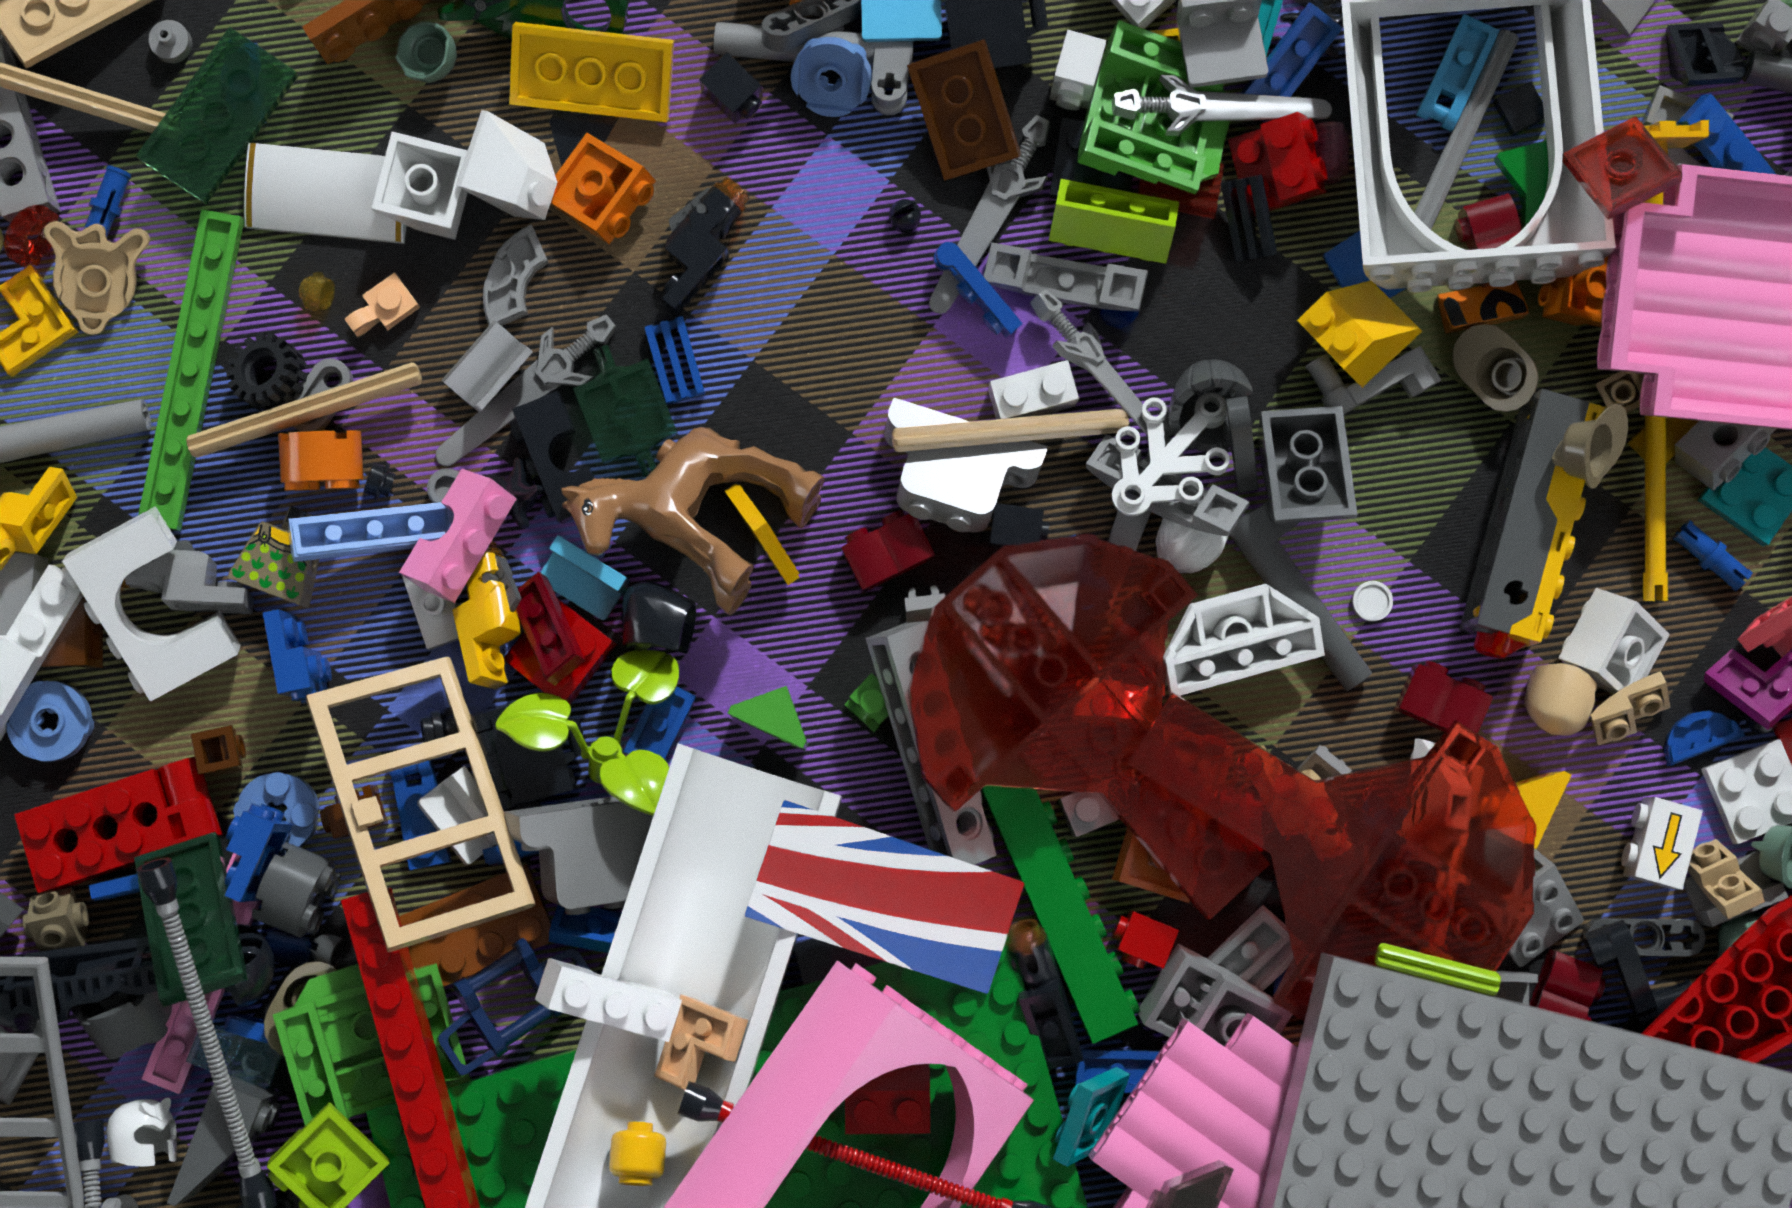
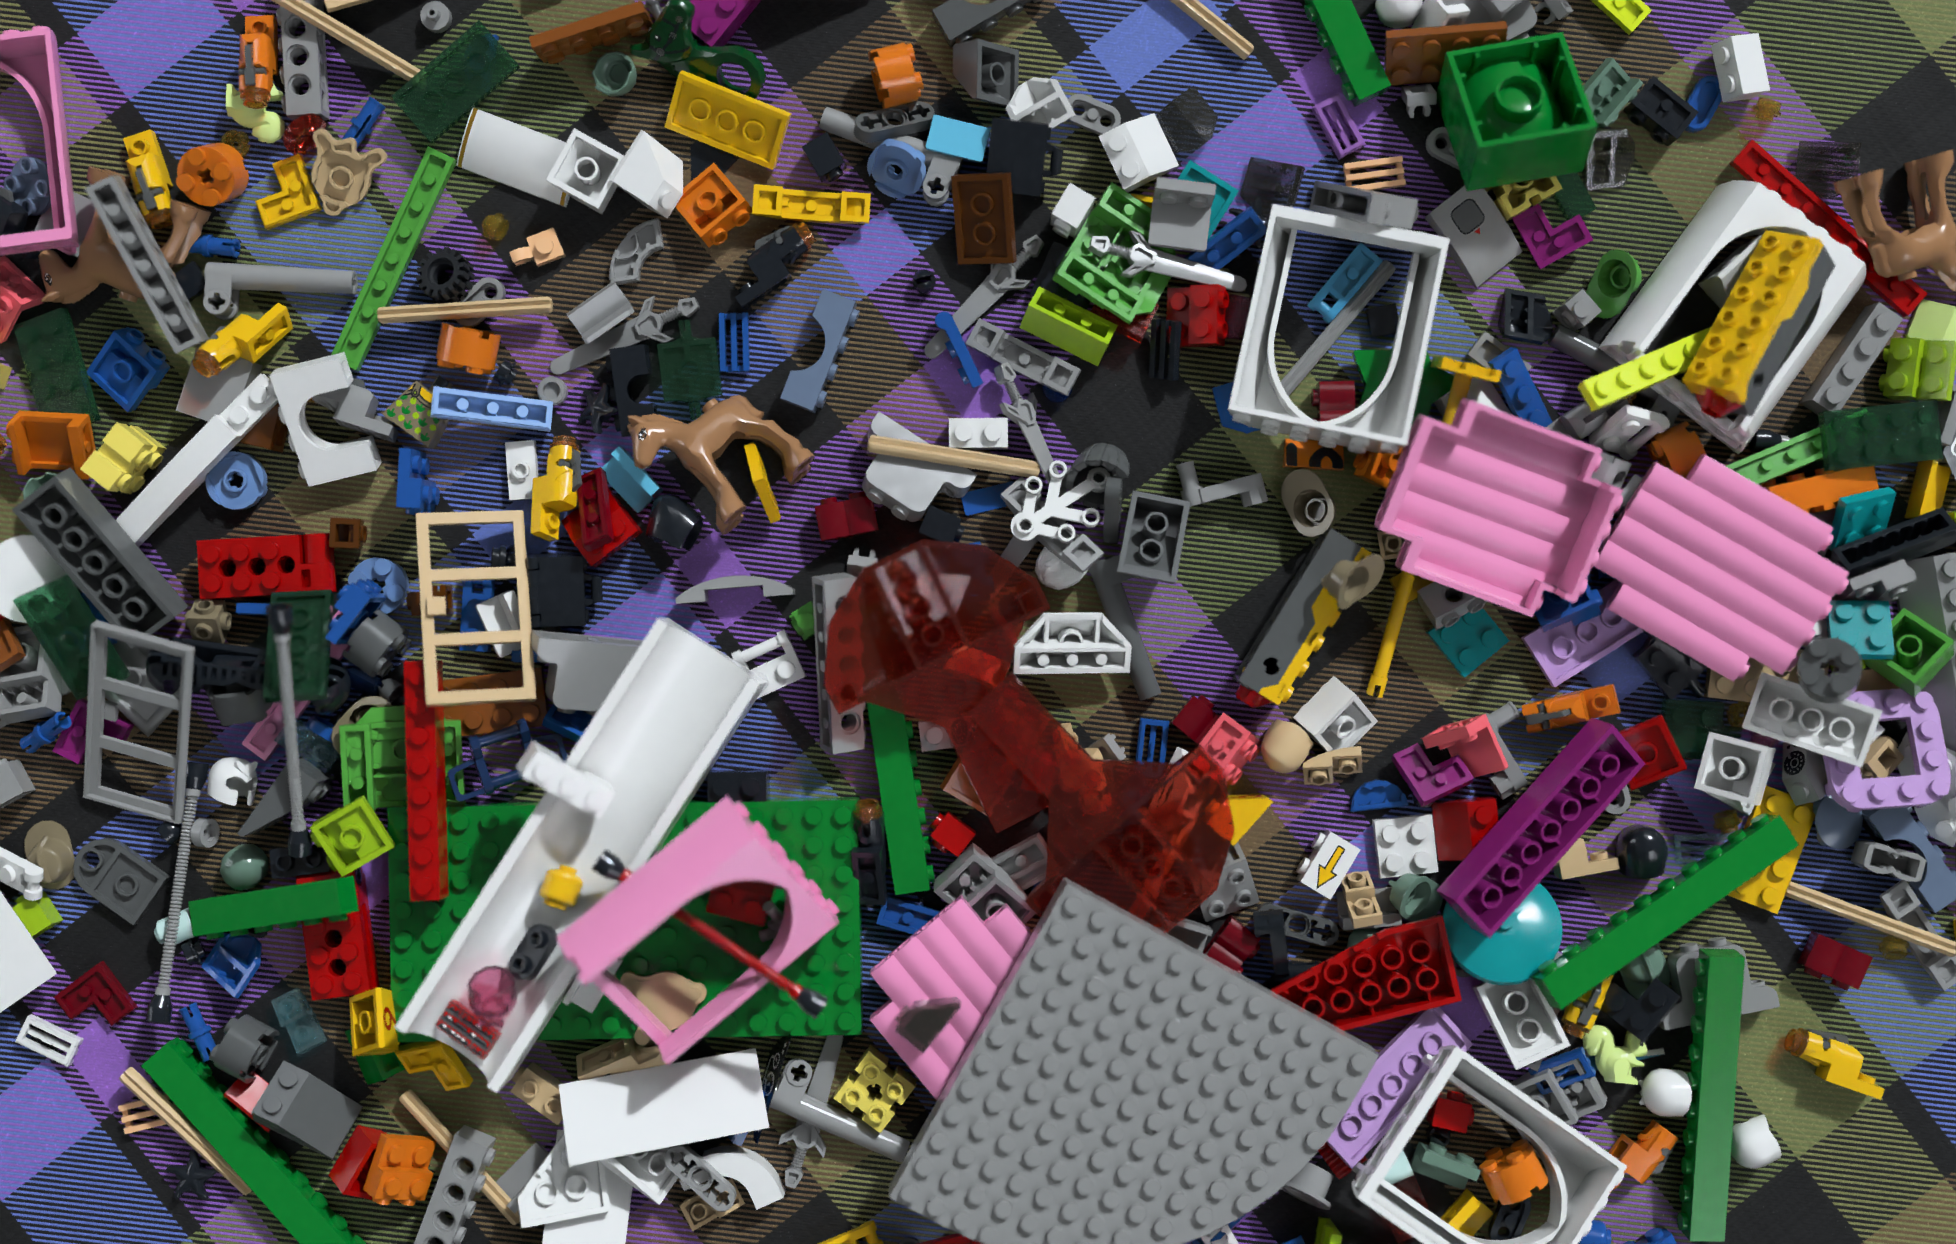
camera: 20 degrees right, 5 degrees up
(448, 562) = (539, 444): bright pink arch -> none
(635, 779) = (573, 575): lime plant -> none
(661, 724) = (657, 595): blue plate -> none
(696, 1031) = (621, 816): light nougat tile -> none
(715, 705) = (699, 592): none -> light grey slope
(732, 155) = (811, 205): none -> yellow slope
(774, 715) = (737, 613): bright green slope -> none
(787, 391) = (807, 386): none -> sand blue arch
(852, 781) = (778, 671): none -> white plate
(884, 897) = (773, 760): sticker -> none
(943, 1128) = (774, 925): none -> light grey hose
(1064, 479) = (984, 499): none -> blue sticker
(1091, 1111) = (878, 941): teal plate -> none
(1359, 328) = (1218, 450): yellow slope -> none
(1361, 740) = (1163, 743): none -> blue tile
(1372, 601) = (1176, 642): white piece -> none
(1437, 969) = (1140, 909): lime axle -> none
(1490, 711) = (1231, 747): none -> coral bracket
(1622, 167) = (1427, 390): clear red tile -> none
(1712, 555) = (1423, 674): blue pin -> none

